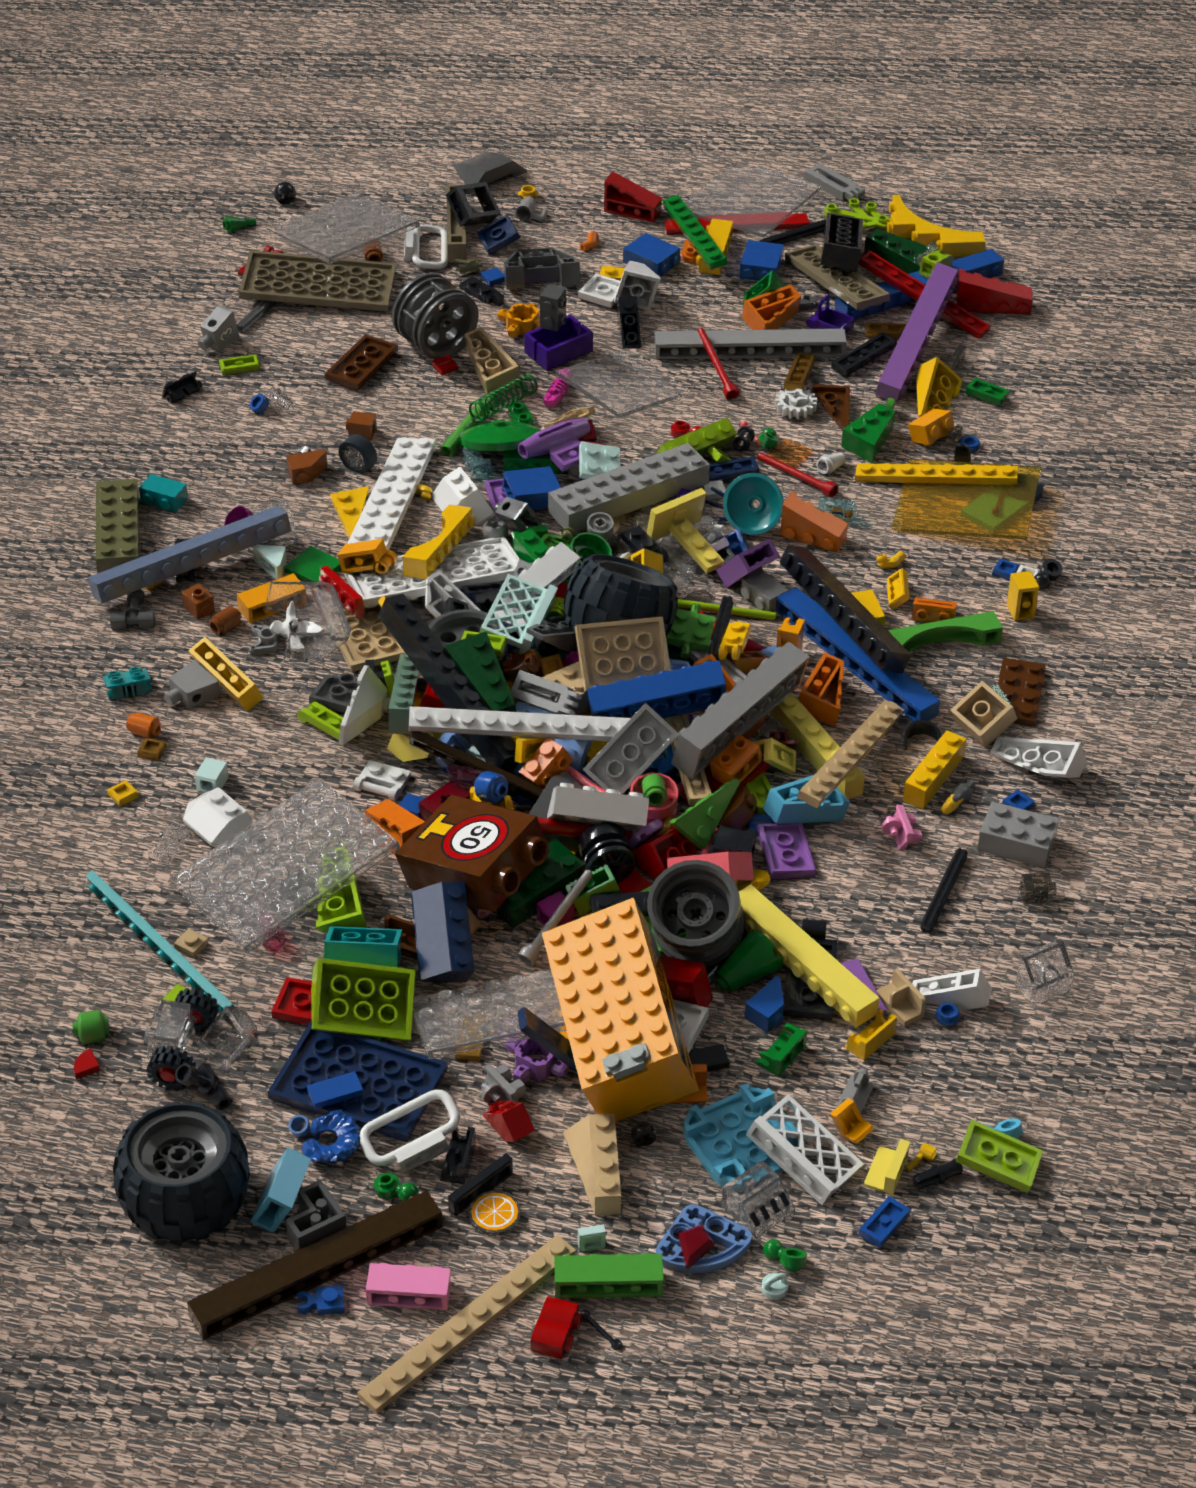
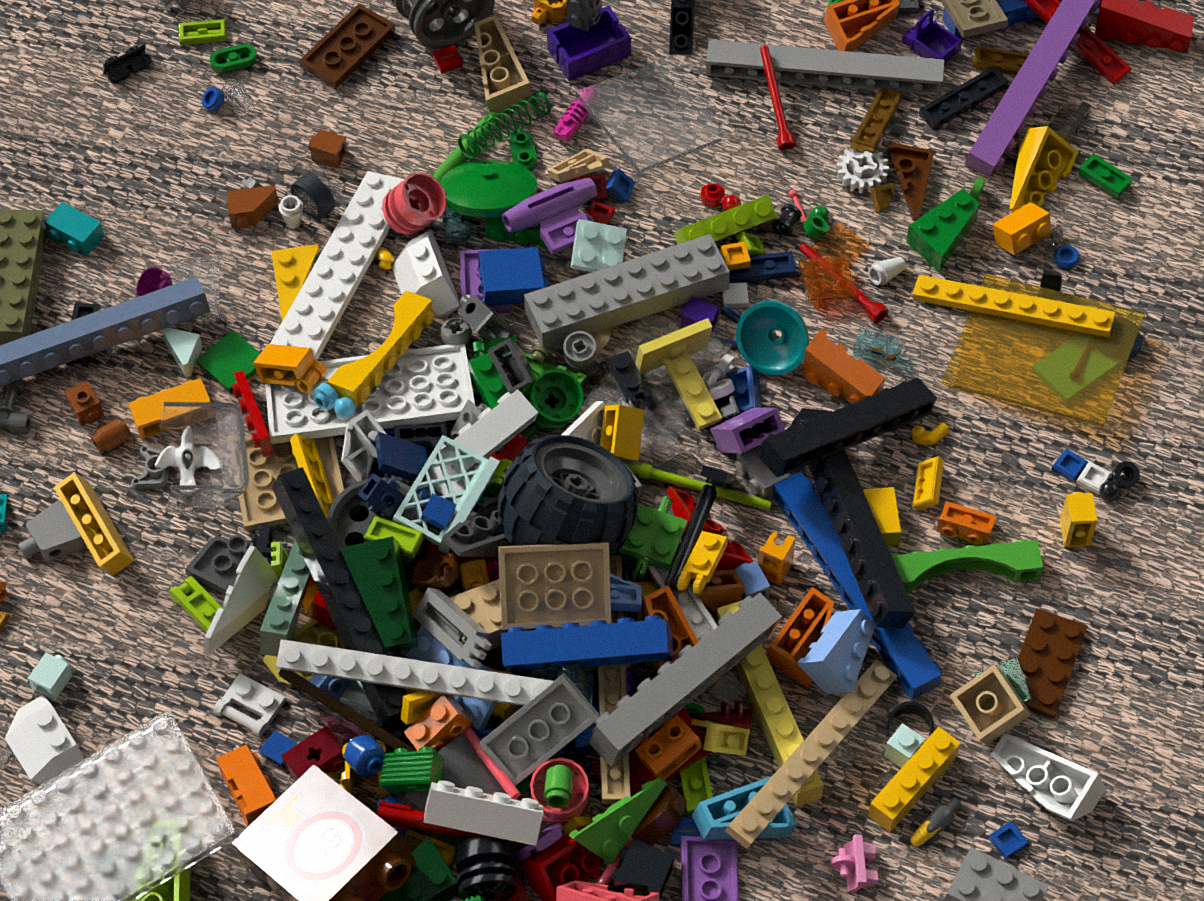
camera: 10 degrees right, 15 degrees up
(269, 377) = (232, 58): none -> green plate
(342, 463) = (291, 211): none -> white cone
(403, 570) = (327, 398): none -> medium azure plate
(443, 448) = (414, 203): none -> coral wheel
(467, 616) = (382, 495): none -> dark blue brick
(472, 599) = (400, 457): none -> dark blue tile
(516, 622) = (438, 511): none -> blue tile
(531, 791) = (410, 770): none -> green brick
(553, 533) = (512, 366): none -> dark grey torso
(605, 429) = (620, 185): none -> blue tile
(713, 459) = (736, 255): none -> light orange plate
(734, 589) = (718, 477): none -> black hinge
(785, 470) = (827, 279): none -> clear orange hinge
(815, 418) = (882, 196): none -> pearl gold tile
(827, 550) = (846, 427): none -> black brick
(856, 691) = (839, 652): none -> light blue wedge
(919, 747) = (903, 745): none -> light aqua brick

